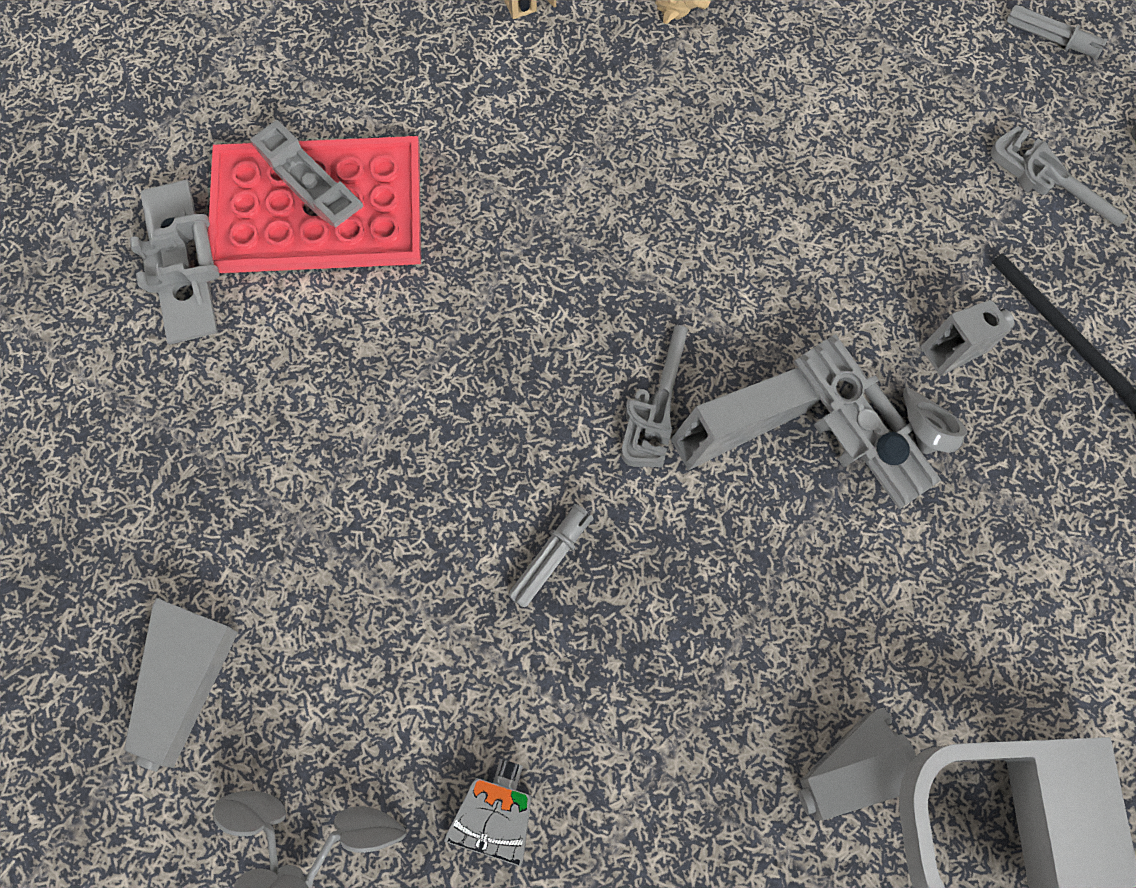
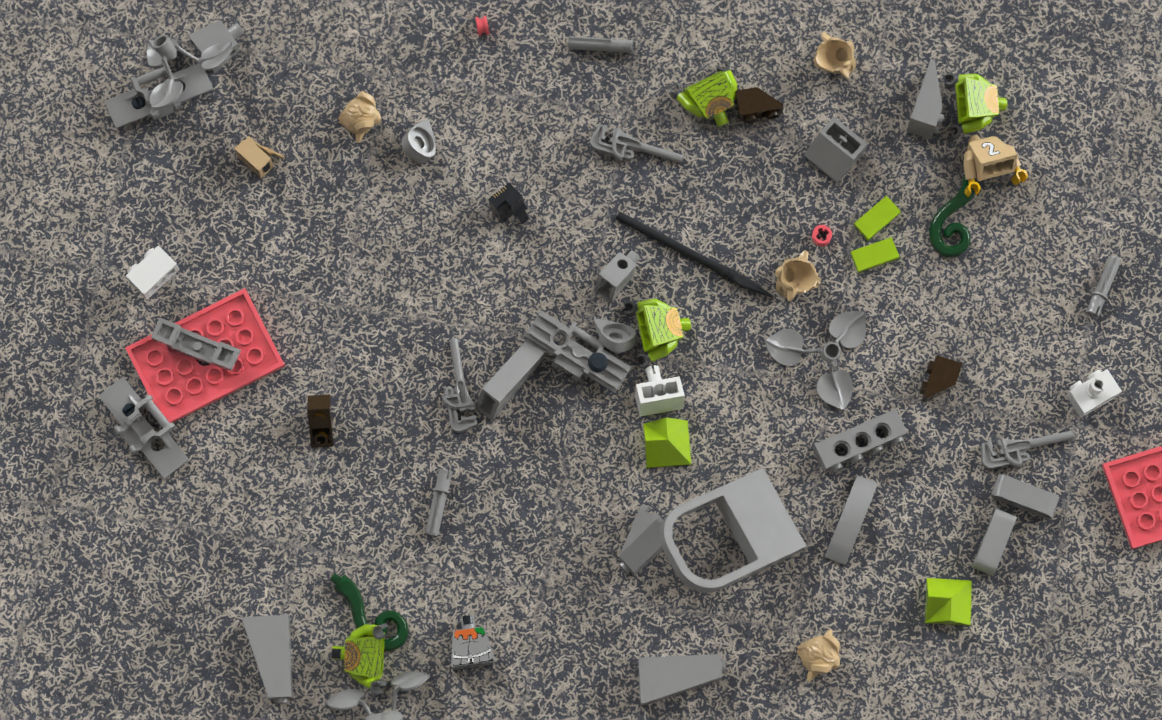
camera: 25 degrees left, 5 degrees up
(297, 56) = (152, 271): none -> white brick
(312, 755) = (364, 656): none -> lime torso
(348, 638) = (352, 594): none -> dark green plant
(431, 357) = (320, 420): none -> dark brown slope
(748, 51) = (419, 142): none -> light grey piece
(843, 173) = (508, 203): none -> black piece
(952, 623) = (667, 443): none -> lime slope
(972, 542) = (659, 394): none -> white brick
(1007, 440) = (658, 328): none -> lime torso

